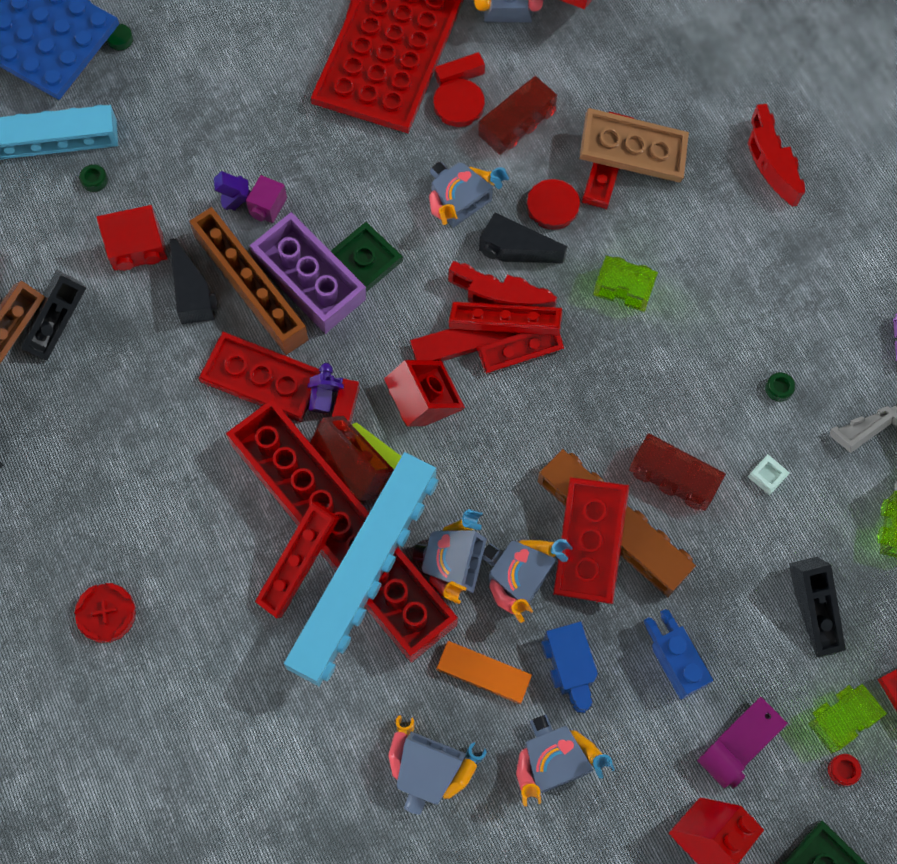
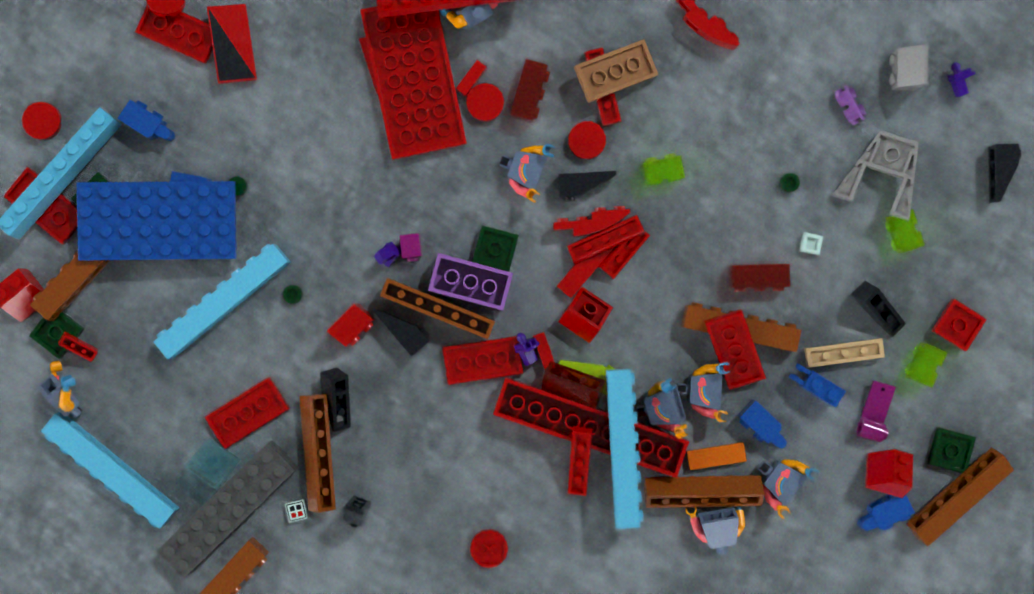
camera: 30 degrees left, 20 degrees up
(436, 704) = (703, 491): none -> dark orange brick
(740, 636) = (844, 352): none -> tan plate
(844, 770) = (938, 392): red tile -> none

